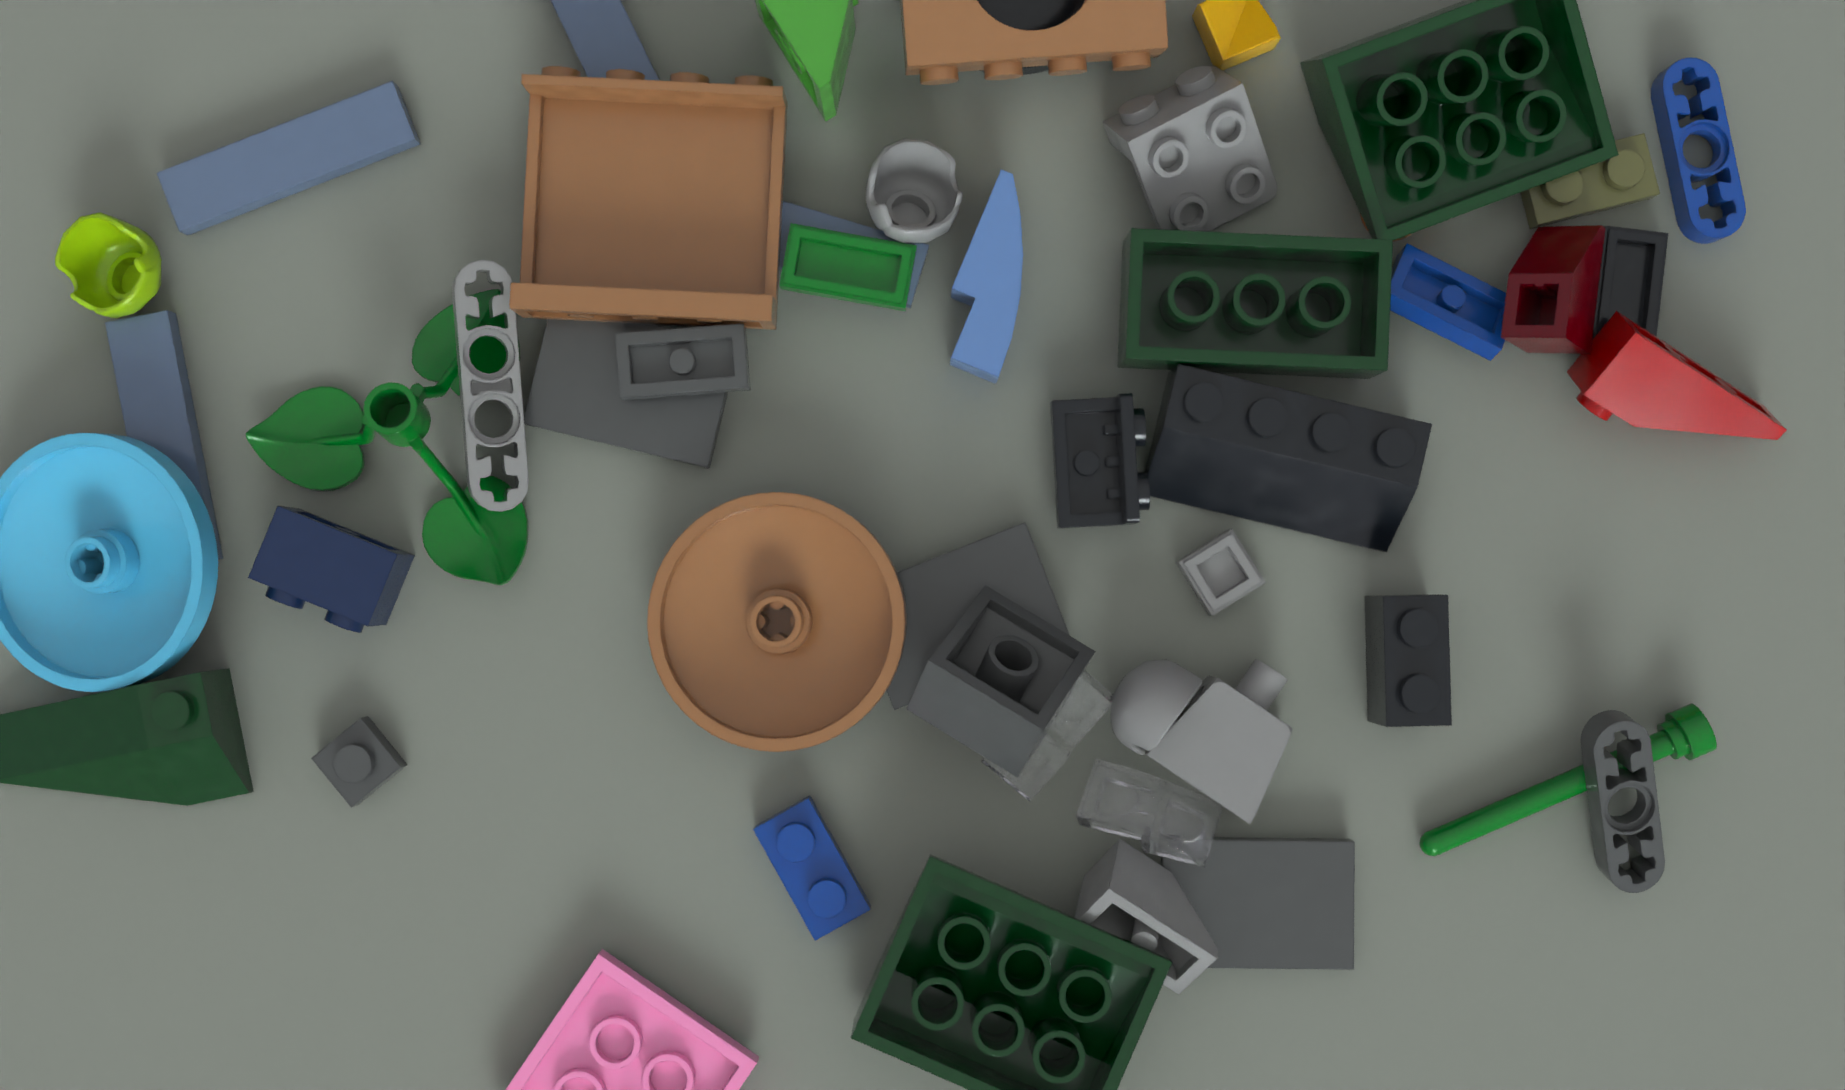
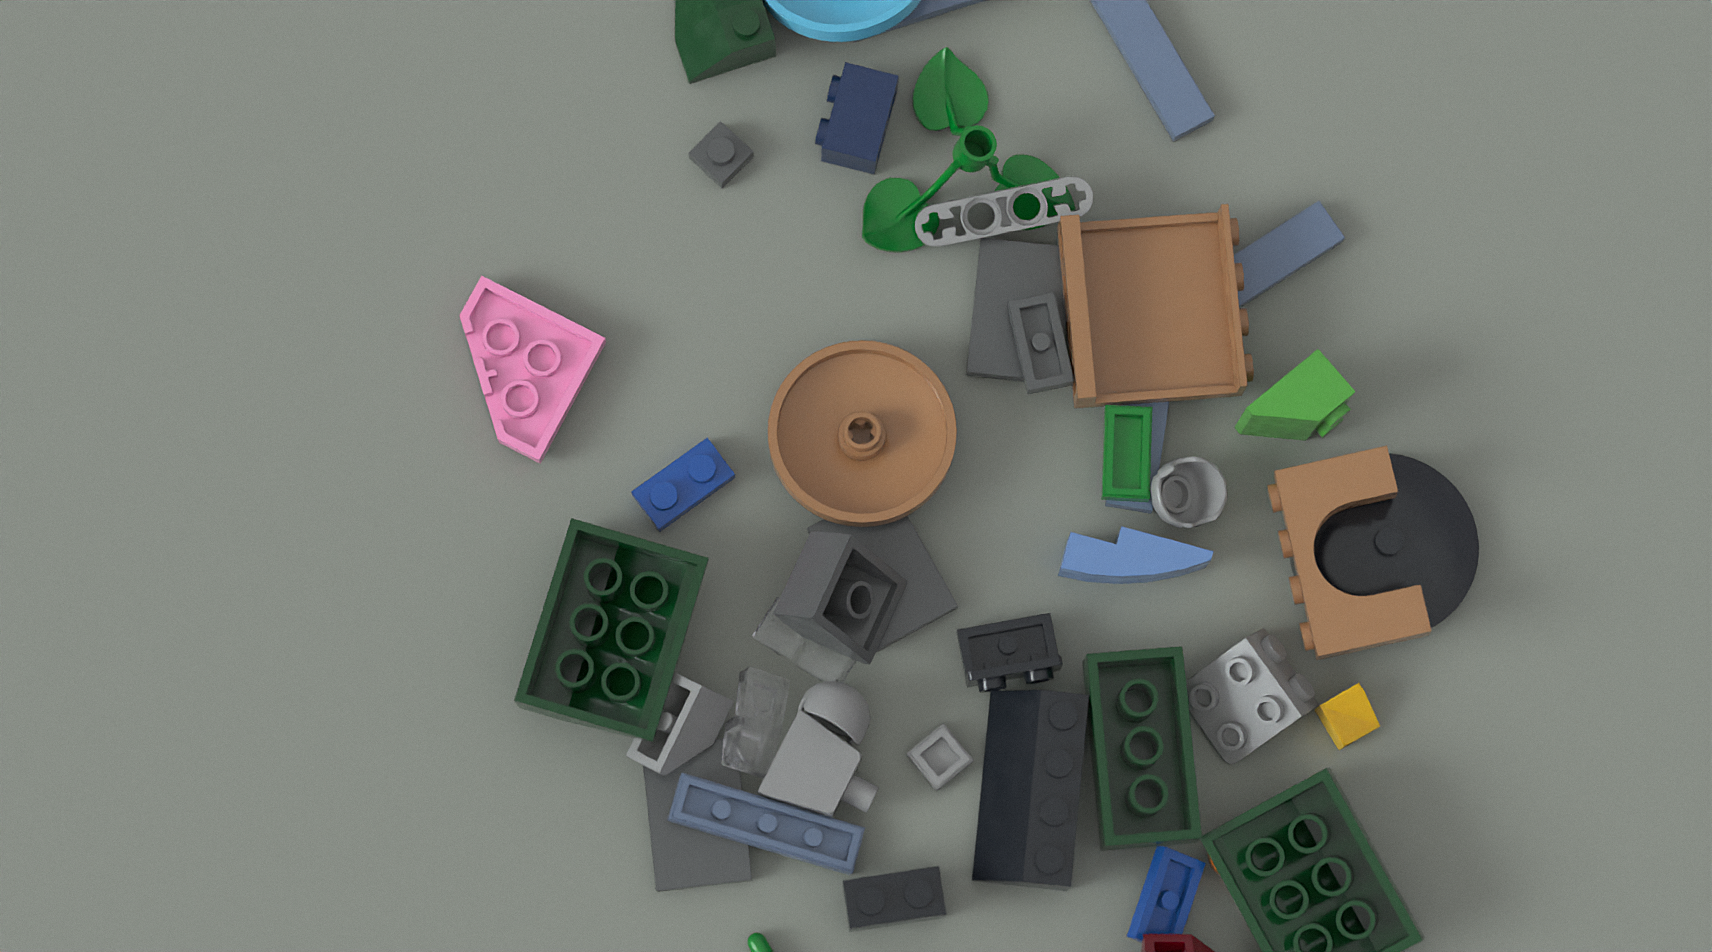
camera: 80 degrees right, 10 degrees down
(1287, 820) = (766, 824): none -> sand blue tile

